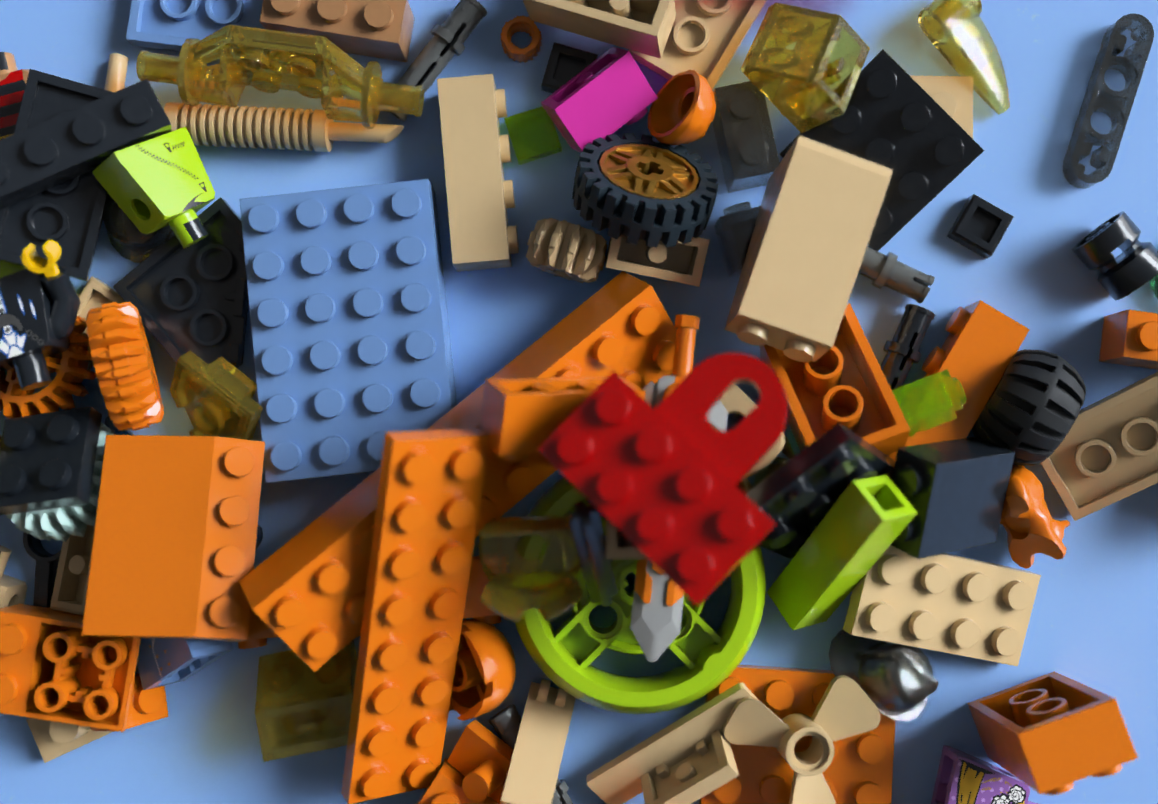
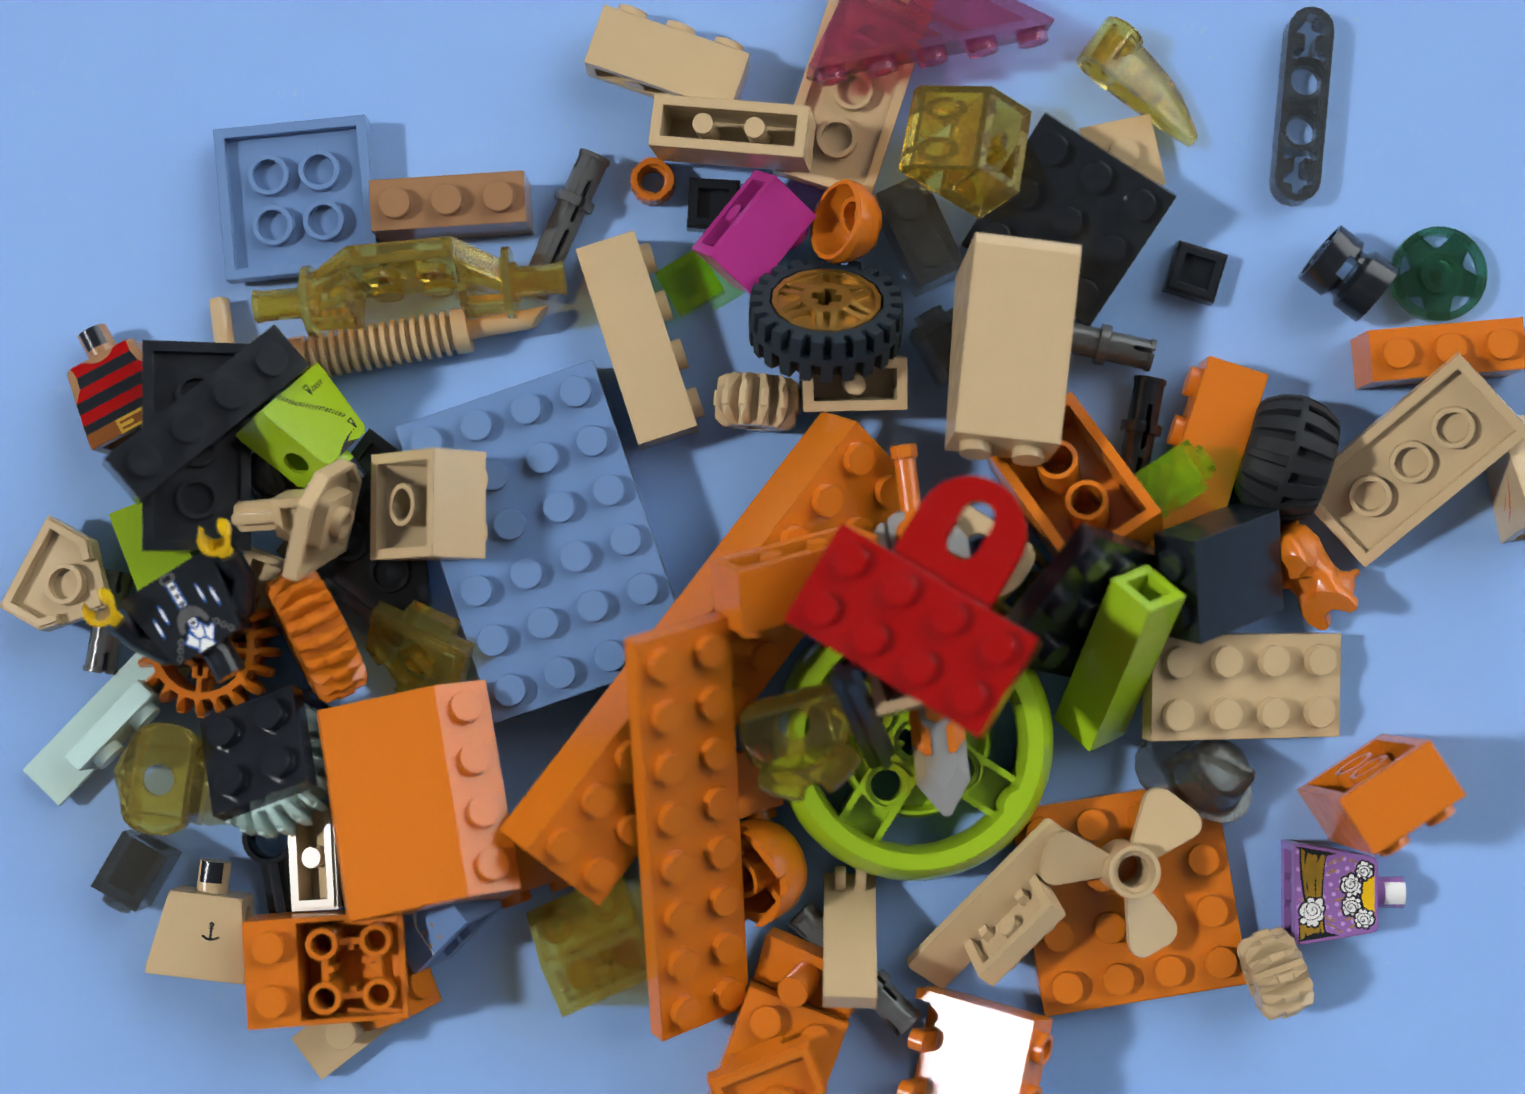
camera: 15 degrees left, 0 degrees up
(141, 264) = (312, 519): none -> tan piece
(249, 273) = (428, 505): none -> tan slope

